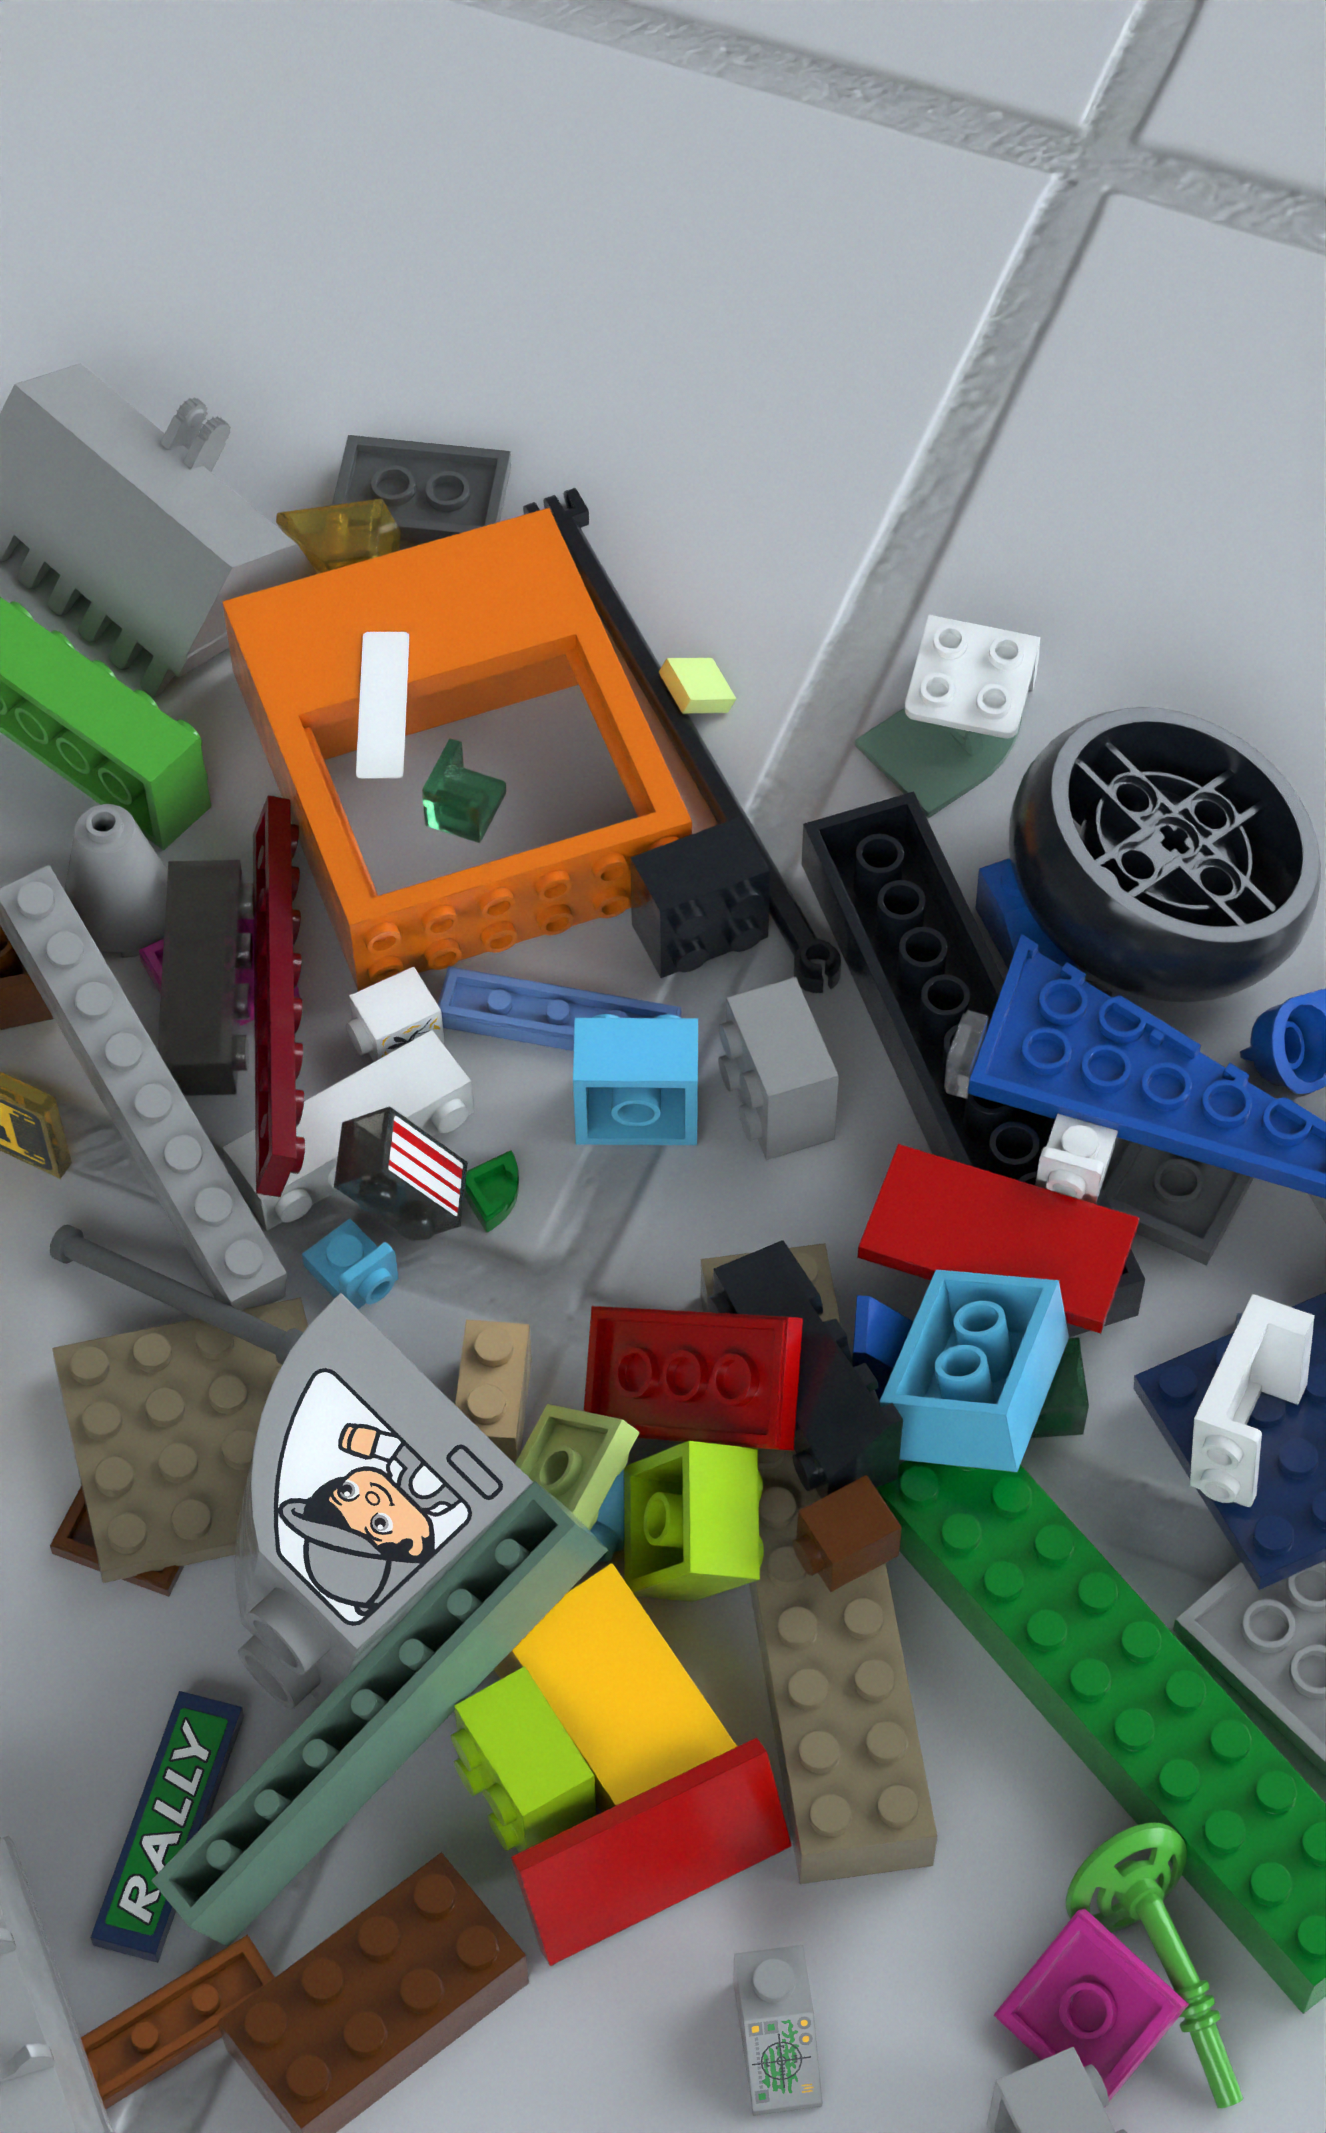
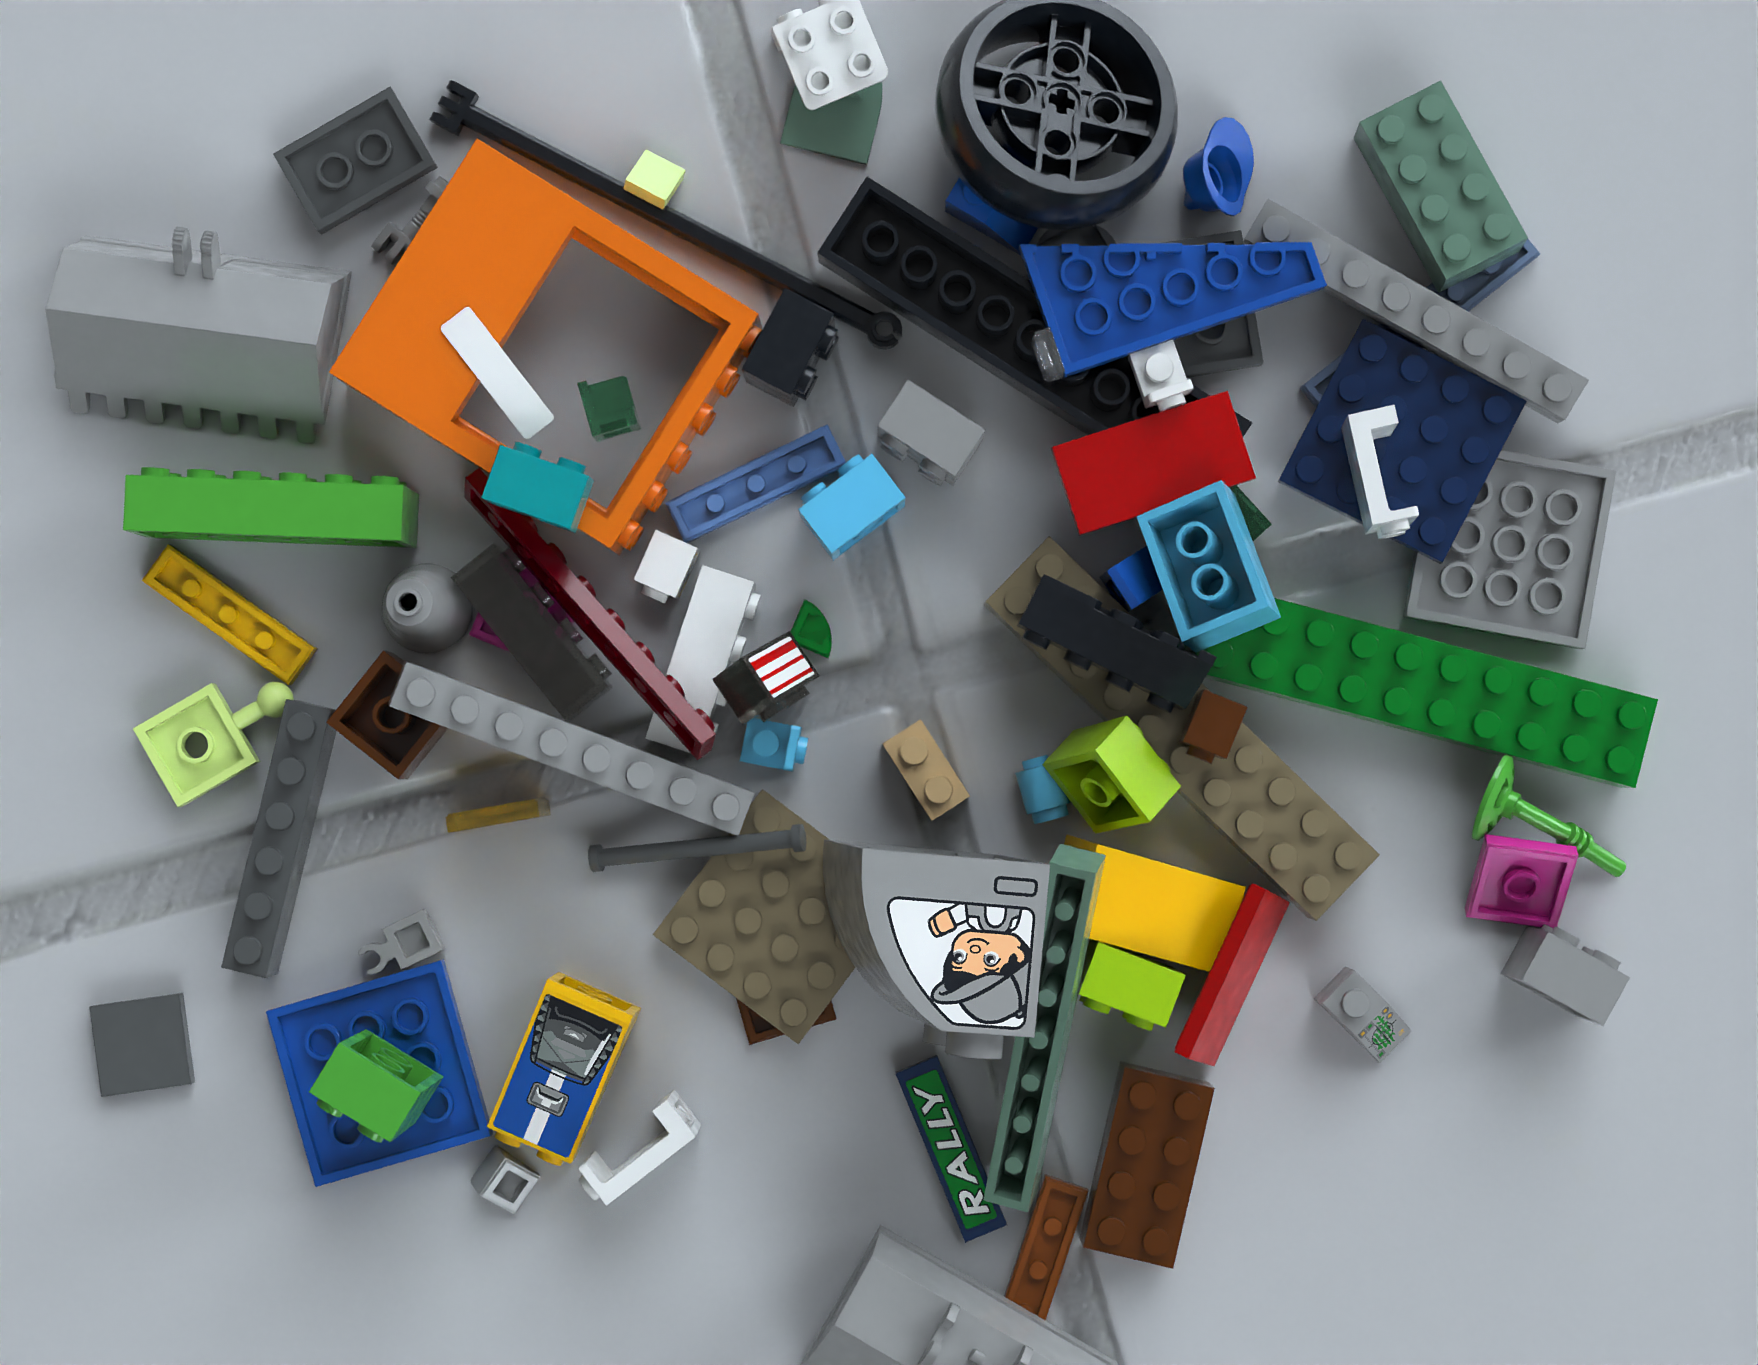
camera: 35 degrees left, 30 degrees up
(328, 812) = (538, 487): none -> teal brick
(342, 532) = (350, 245): clear yellow slope -> none
(585, 1448) = (999, 817): yellowish green plate -> none
(696, 1375) = (1048, 689): red tile -> none

